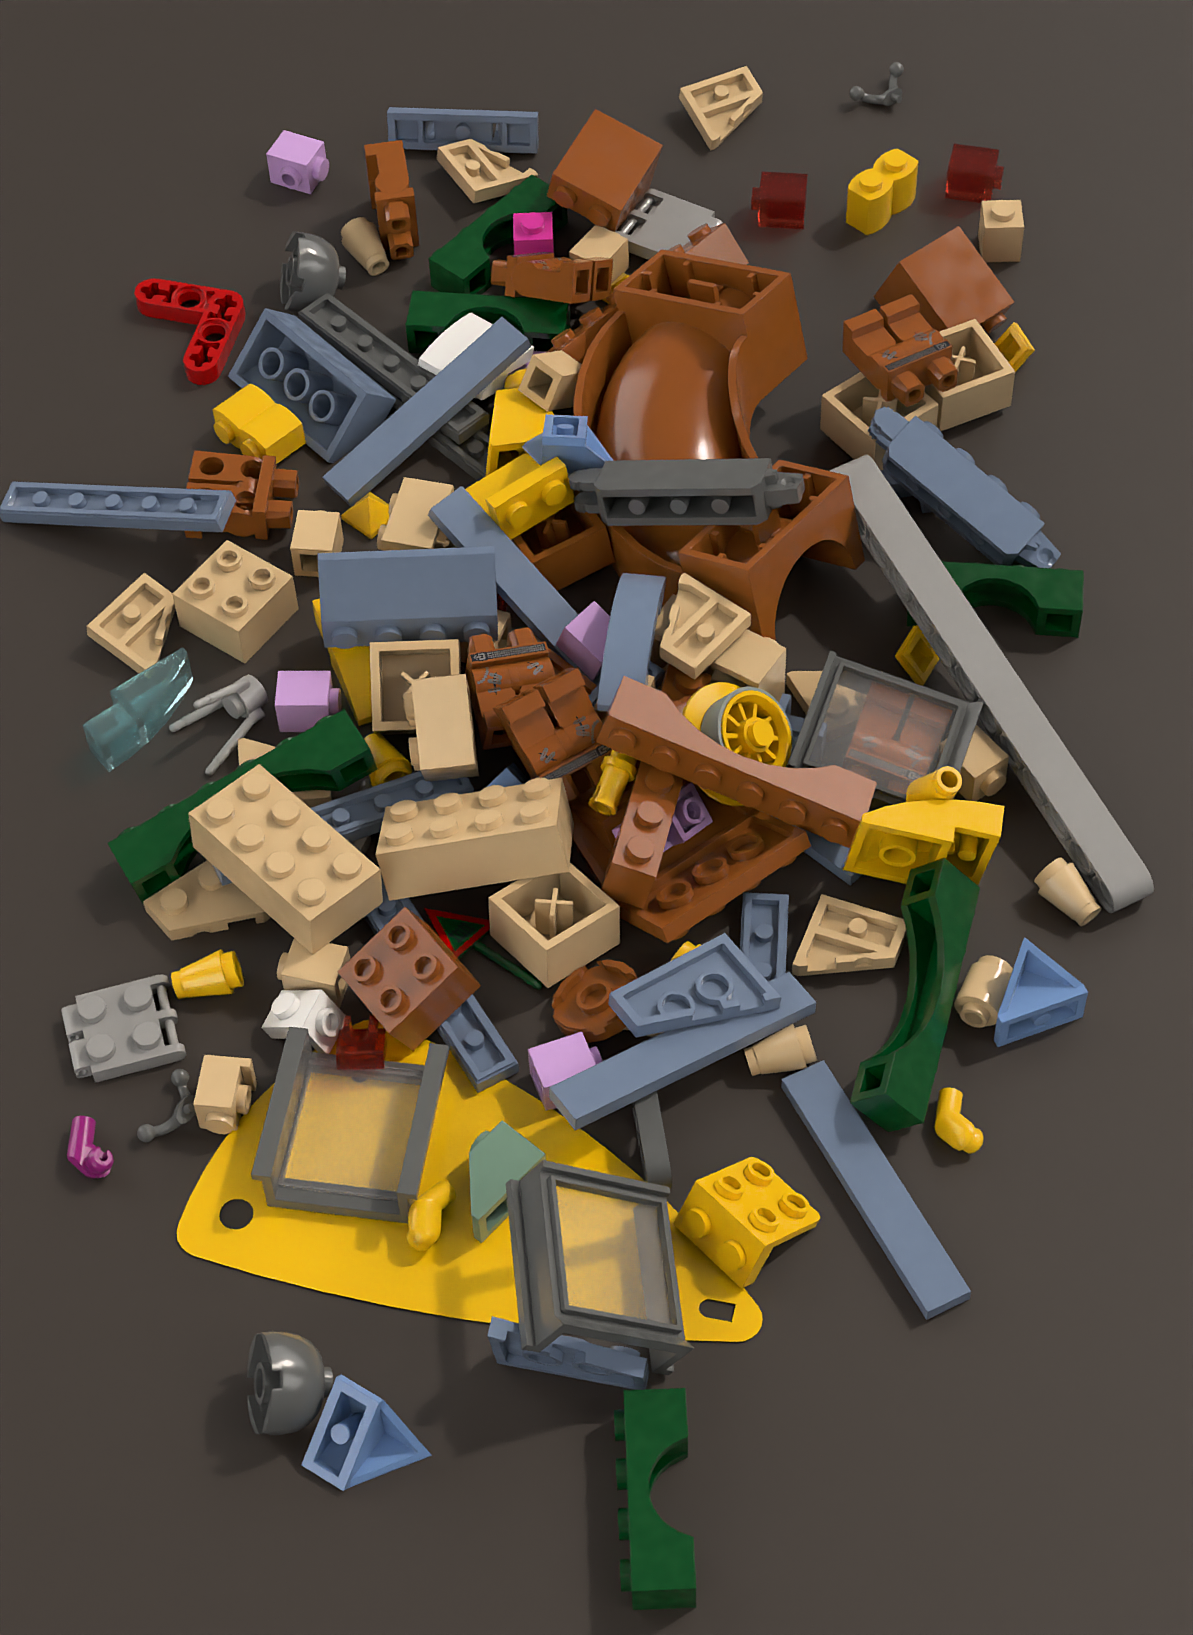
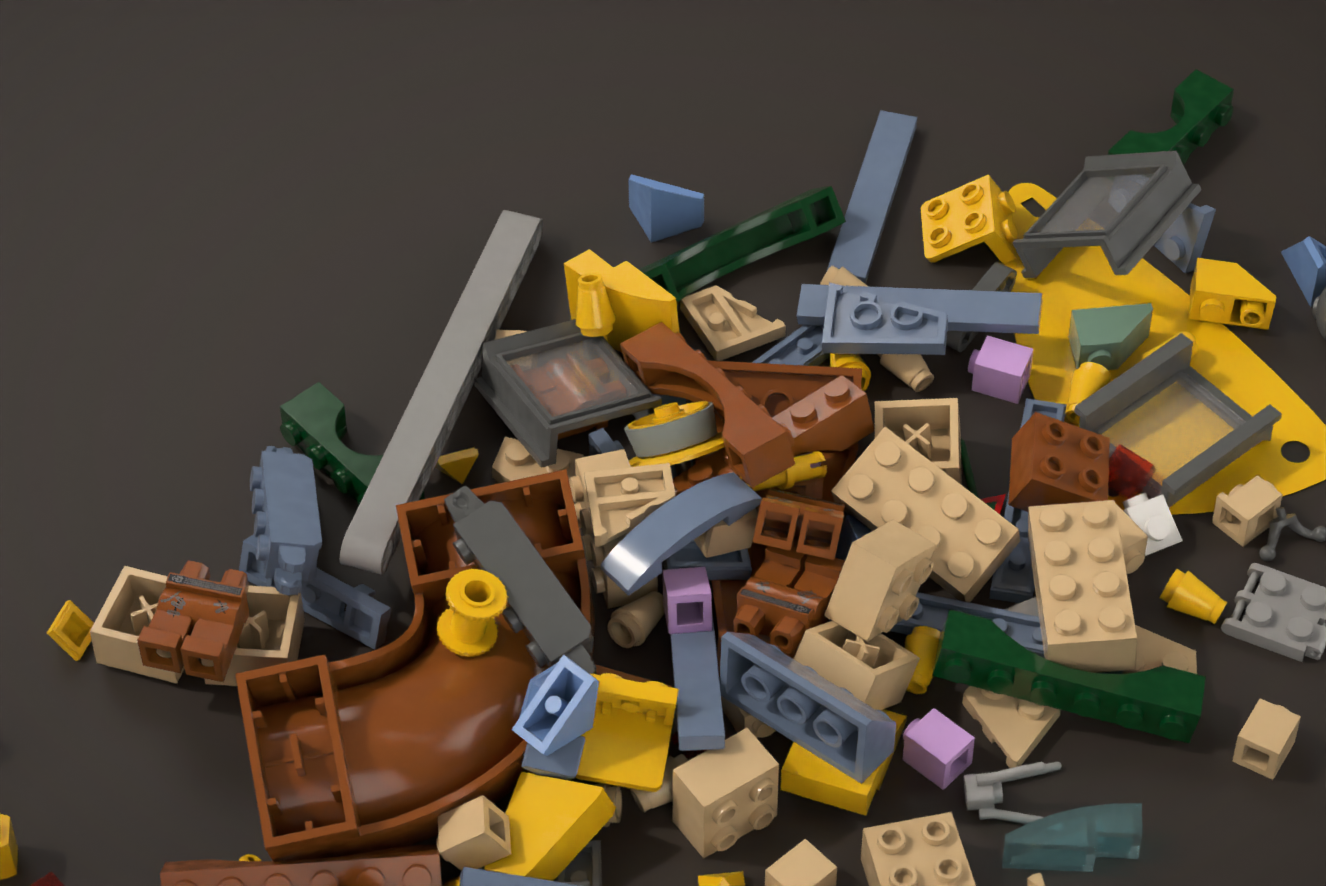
camera: 140 degrees left, 5 degrees down
(49, 891) = (1266, 738): none -> tan brick
(427, 1321) = (1229, 295): none -> yellow slope
(467, 1106) = (1085, 382): none -> yellow cone
(584, 999) = (939, 379): dark orange tile -> none
(691, 442) = (474, 603): none -> yellow hose
(949, 284) = (57, 712): dark orange slope -> none
(953, 1126) = (789, 186): yellow arm -> none
(983, 991) = (681, 232): tan brick -> none
(1067, 891) = (554, 253): tan cone -> none

